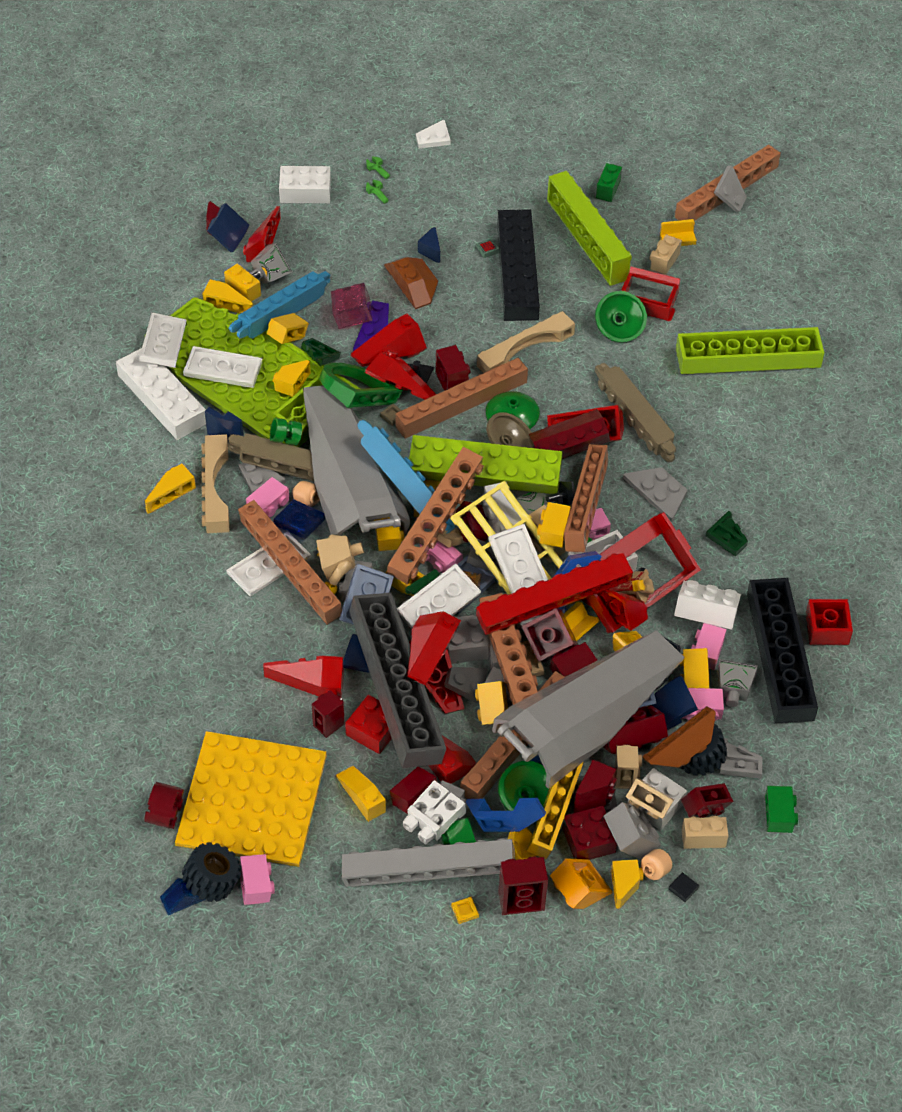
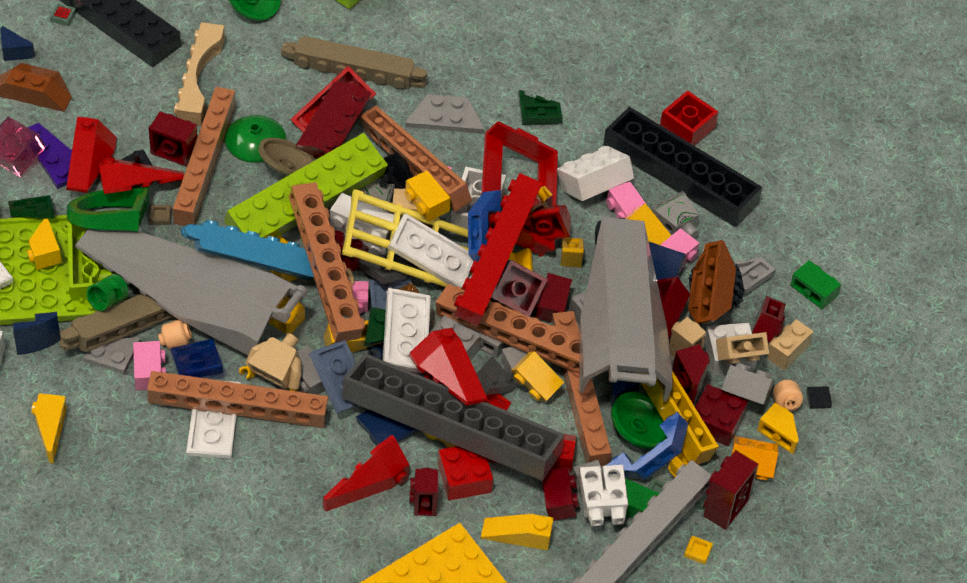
camera: 50 degrees left, 0 degrees up
(216, 511) = (119, 412): tan arch -> none

